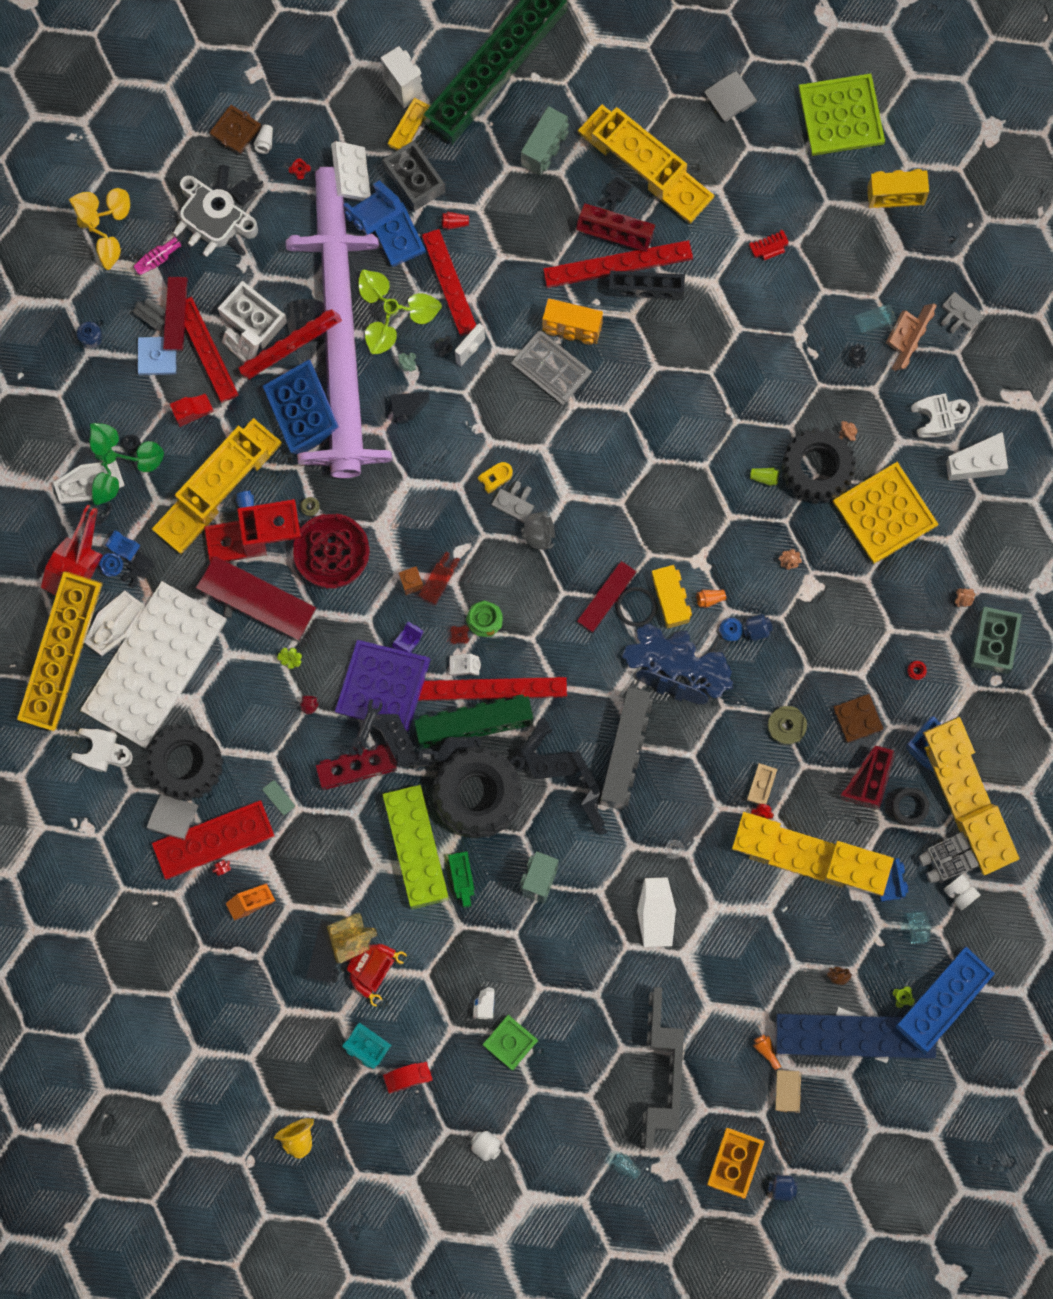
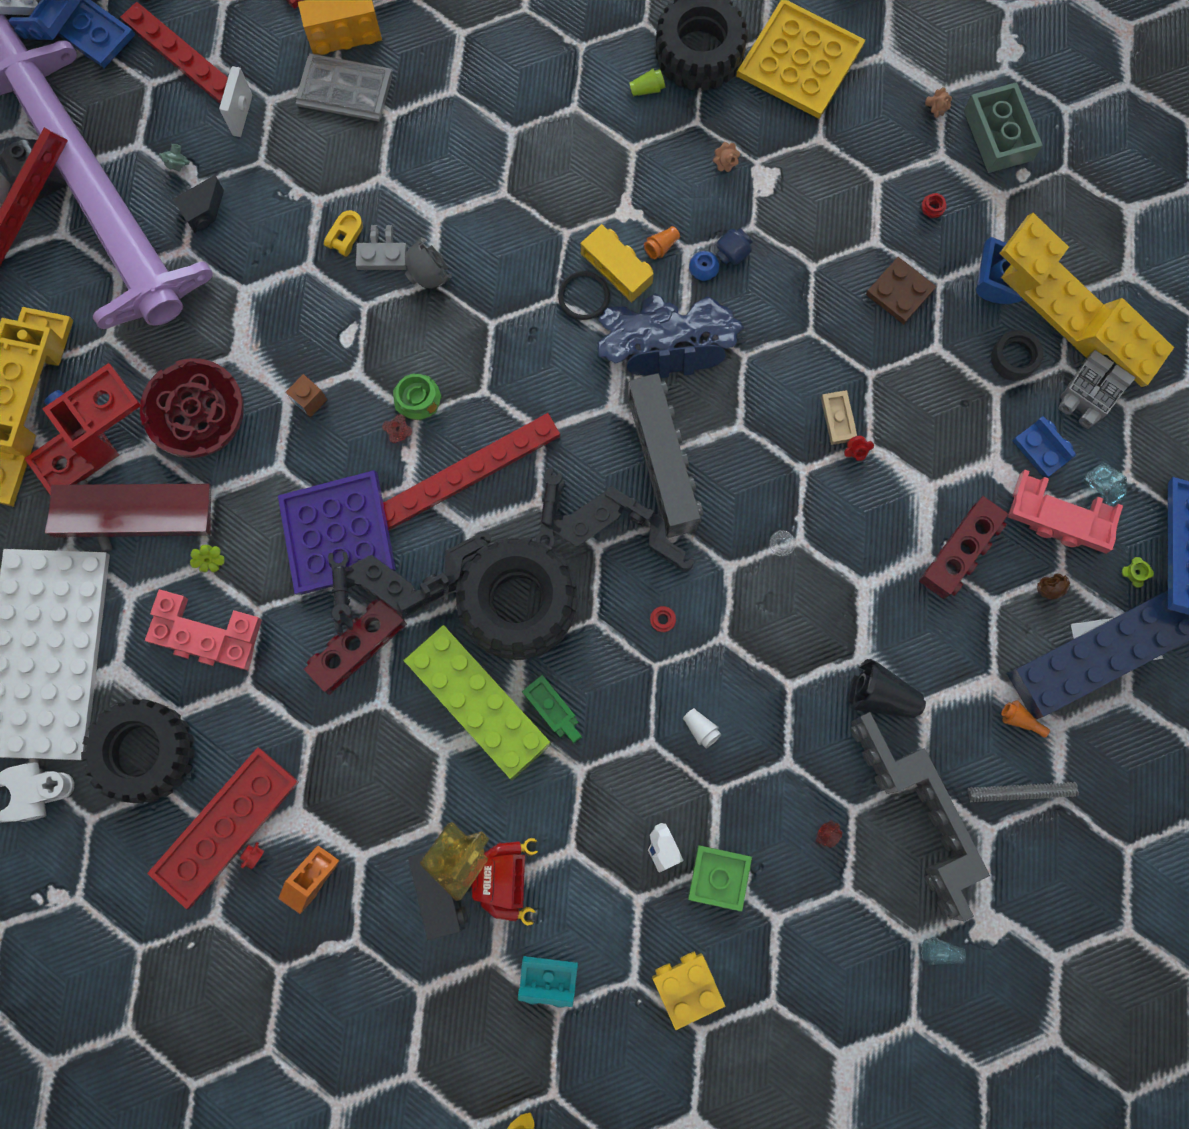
camera: 30 degrees left, 0 degrees up
(172, 817) = (157, 827): light grey slope -> none
(263, 715) = (209, 643): none -> coral bracket
(278, 797) = (280, 732): sand green sticker -> none
(301, 408) = (70, 261): blue slope -> none
(309, 704) = (258, 601): dark red plate -> none
(310, 500) = (136, 371): olive plate -> none
(379, 336) = (96, 96): lime plant -> none
(407, 1077) = (619, 992): red brick -> none
(408, 638) = (339, 462): dark purple bracket -> none
(438, 580) = (339, 379): clear red hinge -> none
(443, 346) = (208, 121): black plate -> none
(451, 1100) = (687, 990): none -> yellow plate
(464, 664) = (421, 459): white bracket -> none
(476, 721) = (473, 512): dark green brick -> none
(485, 1145) = (761, 1025): white head -> none
(539, 878) = (648, 658): sand green brick -> none
(552, 942) = (703, 730): none -> white cone
(566, 851) = (662, 611): none -> red plate
(596, 1053) = (829, 834): none -> clear red plate
(606, 597) = (544, 301): dark red tile -> none
(656, 912) = (804, 627): white piece -> none
(684, 984) = (884, 692): none -> black cone
(735, 1163) = (1071, 877): light orange brick -> none
(739, 1096) = (1024, 792): none -> light grey axle
(779, 717) = (828, 351): olive plate -> none
(783, 1187) = (1139, 874): dark blue head -> none
(788, 1091) = (1078, 754): tan hinge -> none
(811, 857) = (947, 468): yellow bracket -> none
(819, 900) = (982, 513): none -> dark red brick
(870, 933) = (1064, 520): none -> coral bracket
(871, 779) = (960, 346): dark red wedge -> none
(962, 892) = (1130, 417): white wheel -> none

